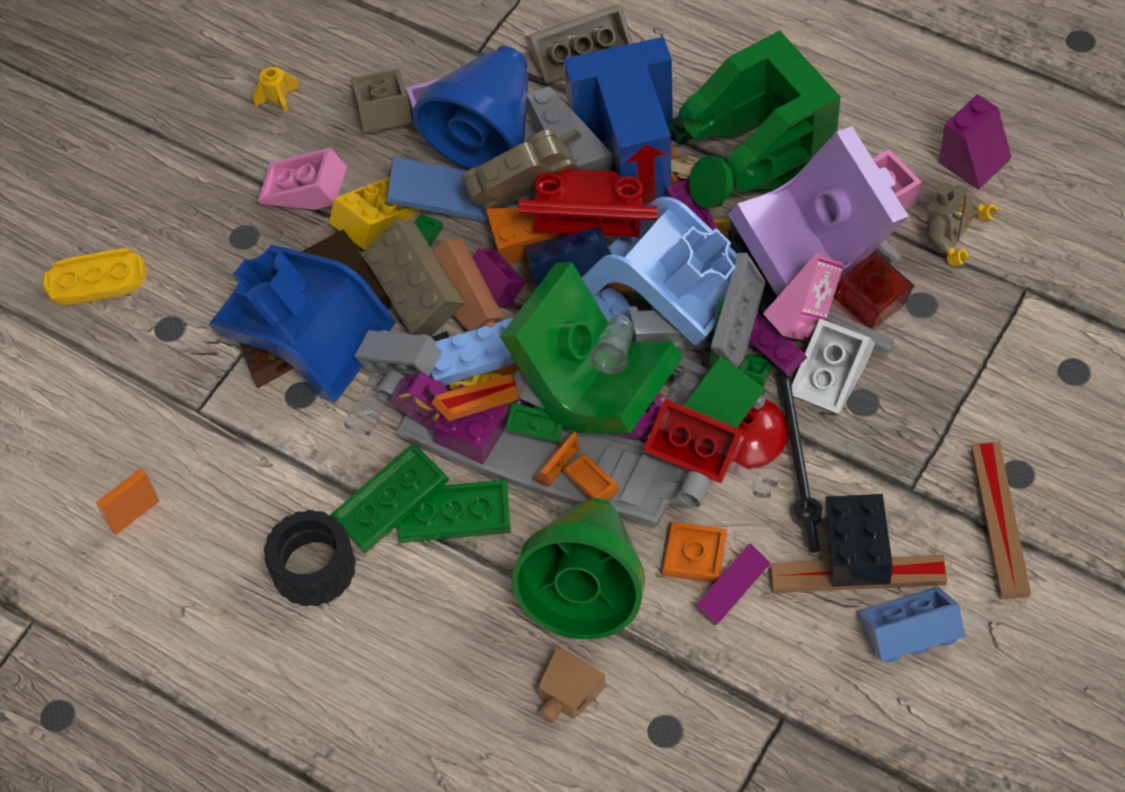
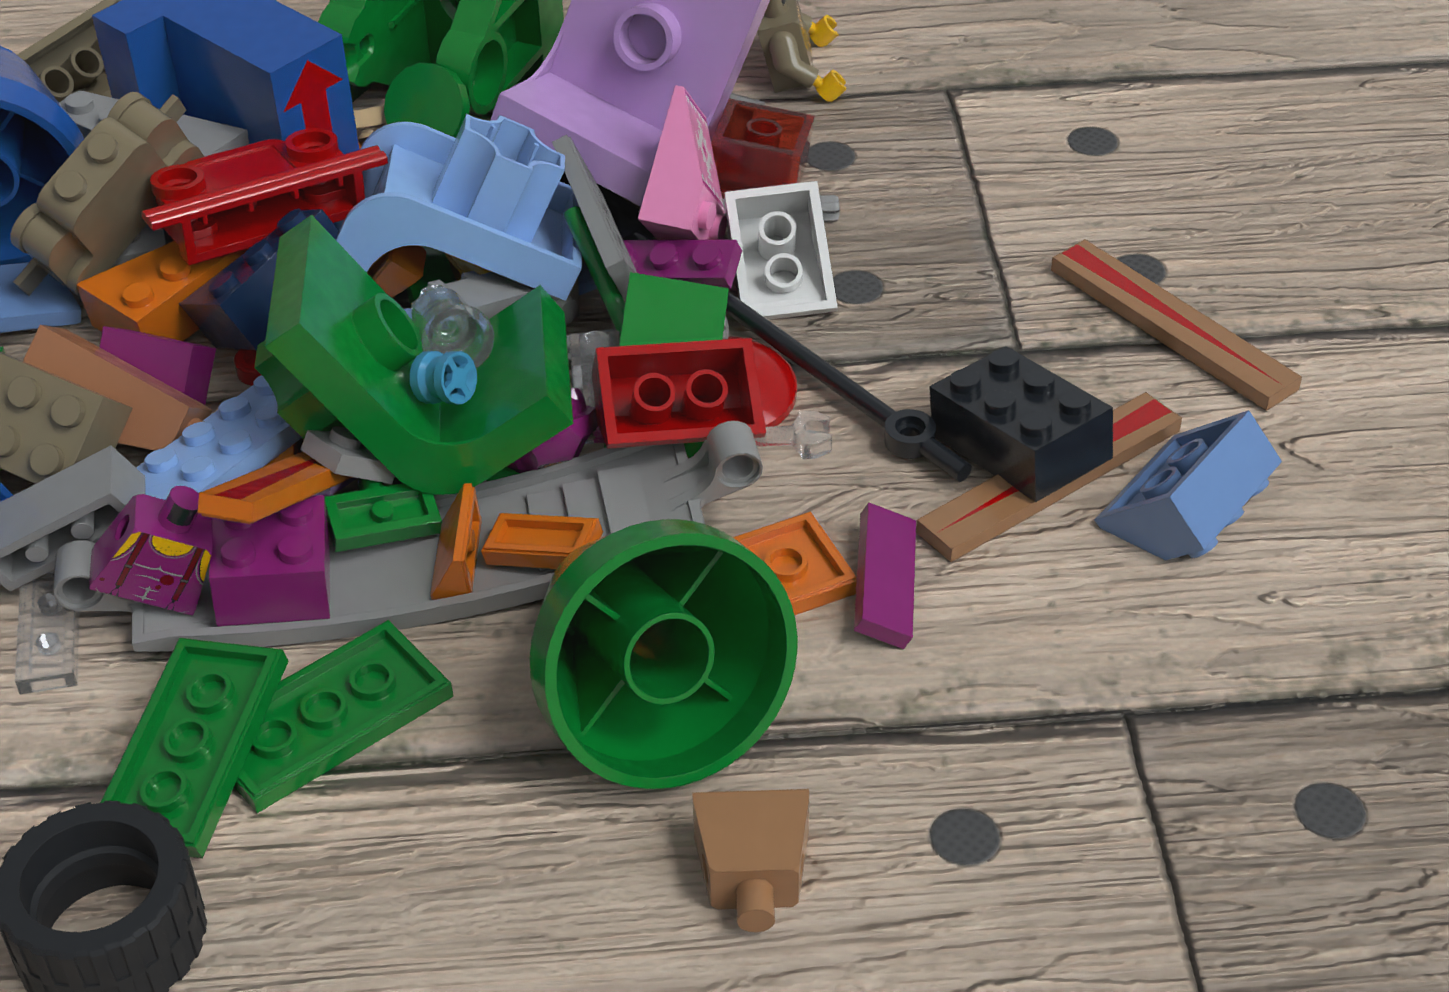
camera: 40 degrees left, 15 degrees down
(589, 375) = (443, 377): none -> dark azure wheel

